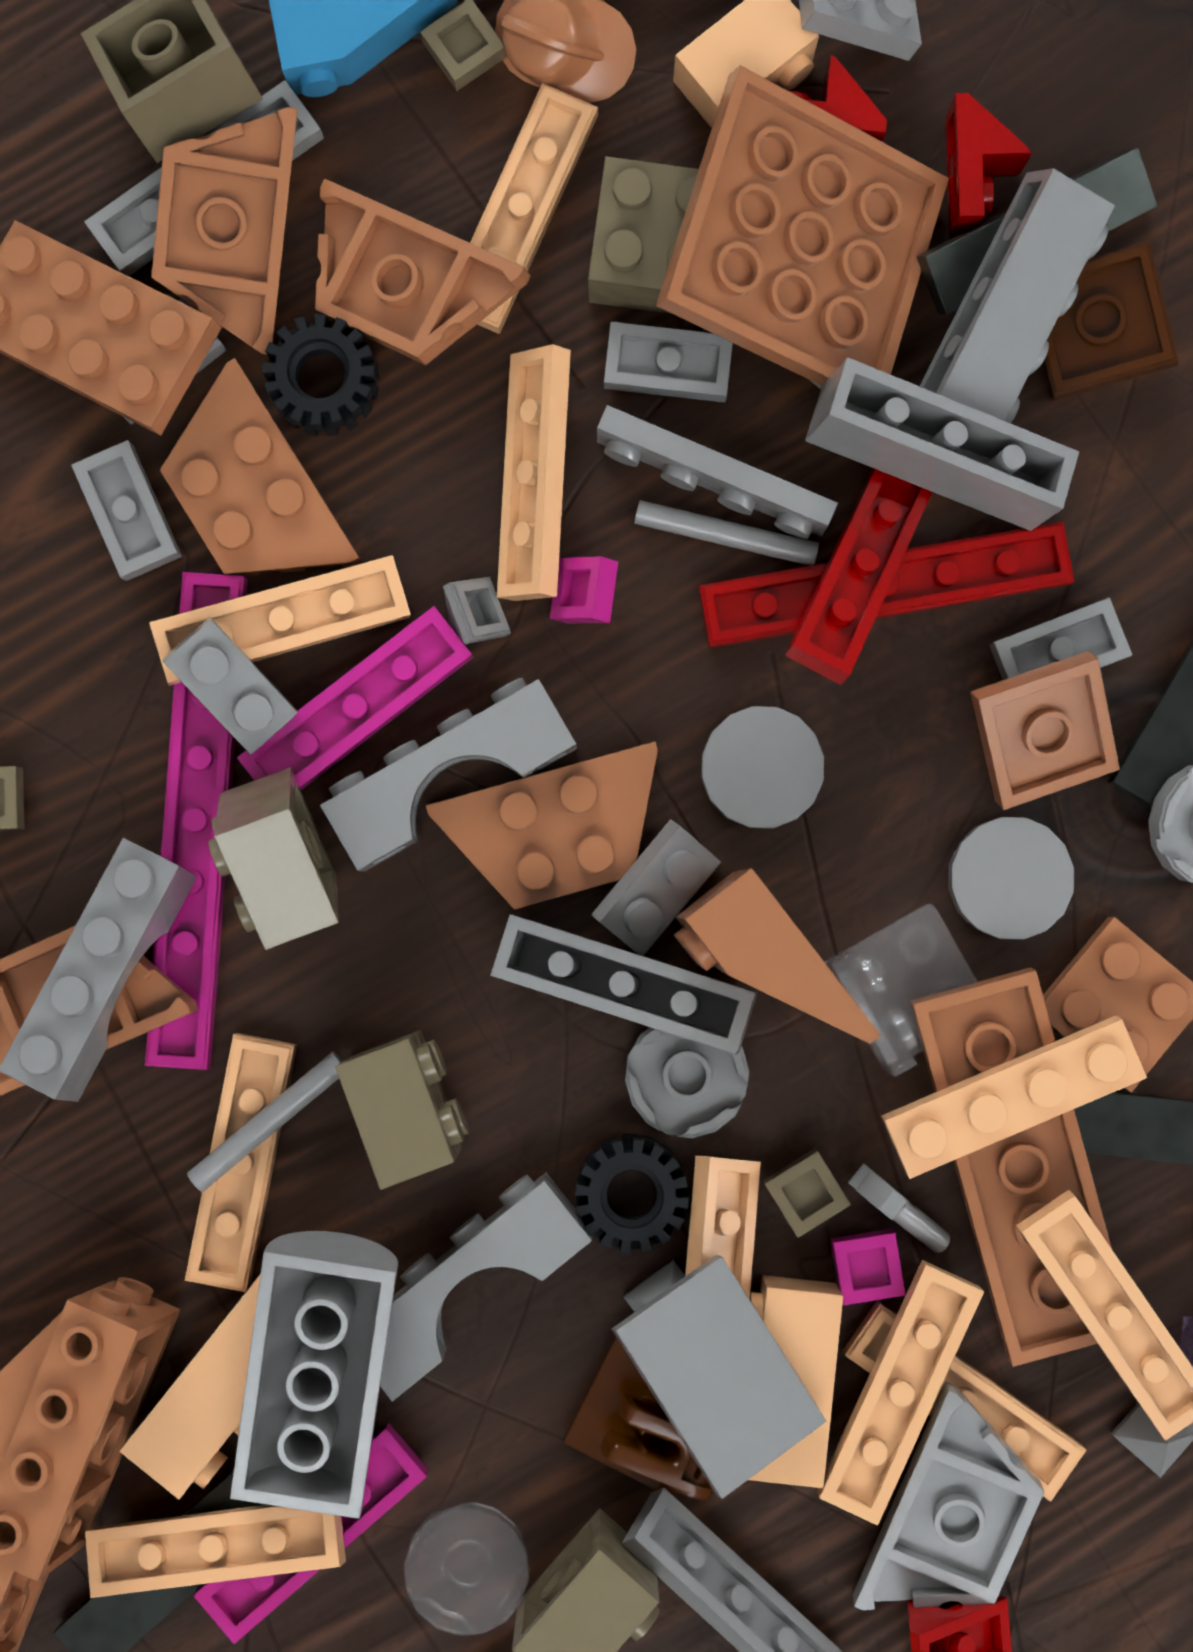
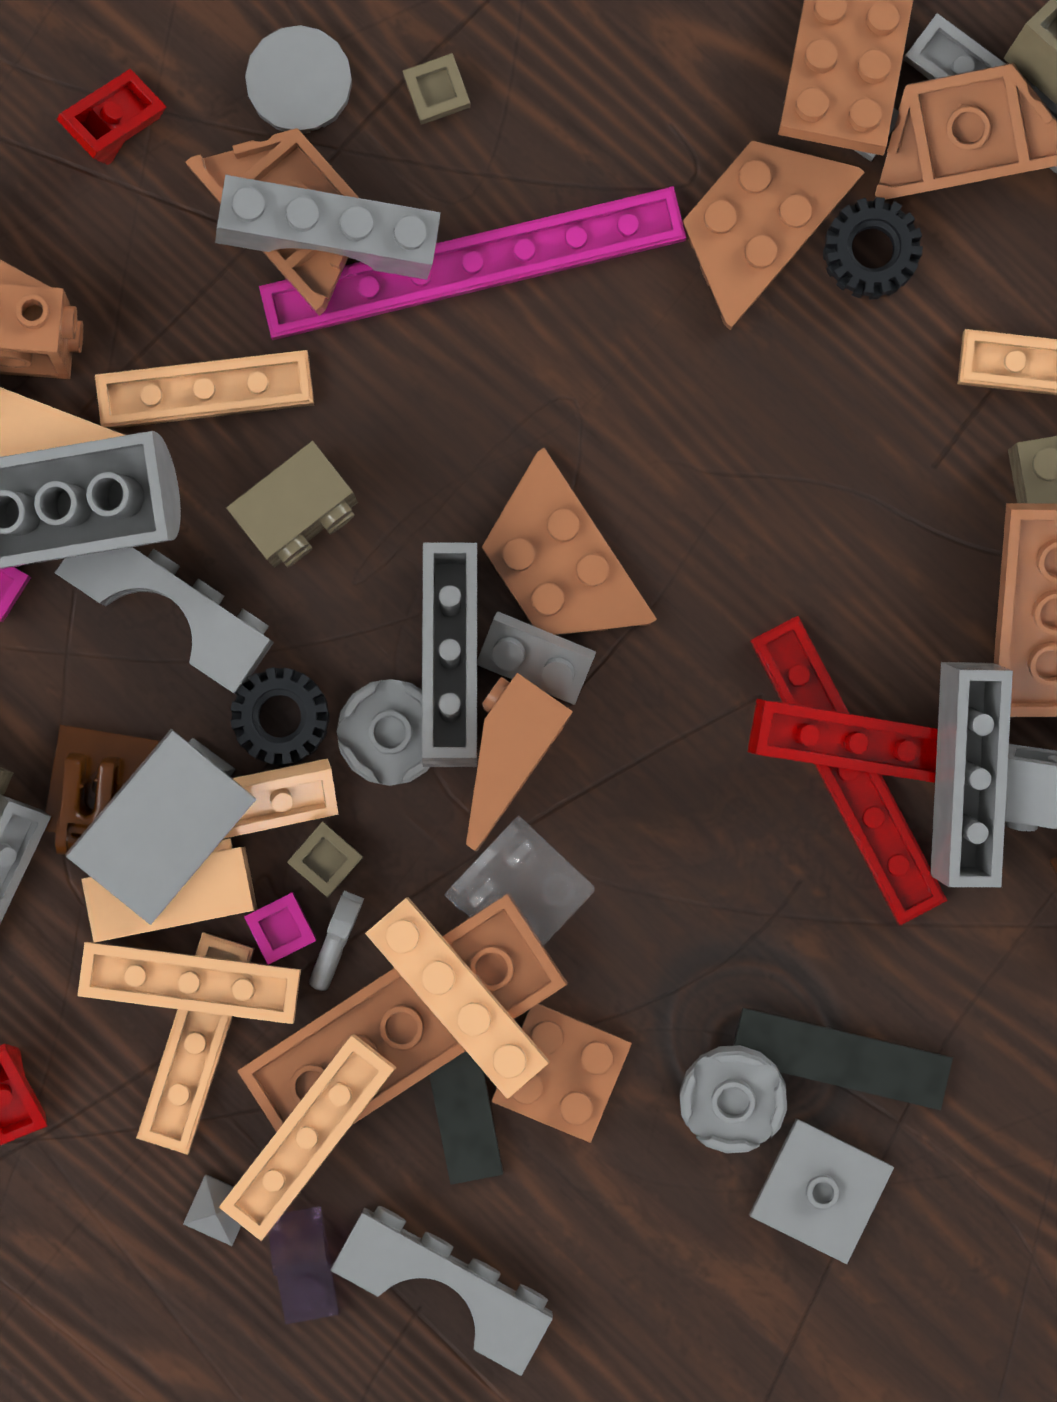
camera: 65 degrees right, 0 degrees up
(126, 510) = (709, 124): light grey plate -> none
(229, 685) = (590, 257): light grey plate -> none
(265, 1123) = (244, 400): light grey bar -> none
(274, 859) = (461, 340): brick -> none
(296, 612) = (658, 280): light nougat plate -> none
(362, 701) = (606, 364): dark pink plate -> none
(380, 812) = (526, 412): light grey arch -> none
(404, 277) = (974, 290): nougat wing -> none
(475, 610) = (718, 437): light grey slope -> none
(533, 473) = (846, 449): light nougat plate -> none
(584, 590) = (762, 521): dark pink plate -> none
(667, 362) = (973, 529): light grey plate -> none
(692, 464) = (894, 575): light grey plate -> none
(726, 533) = (849, 624): light grey bar -> none
(762, 767) = (663, 715): light grey tile -> none
(953, 1515) = (101, 1060): light grey wing -> none
(1011, 878) = (637, 949): light grey tile -> none
(1045, 730) = (766, 936): nougat plate -> none
(1083, 630) = (839, 930): light grey plate -> none

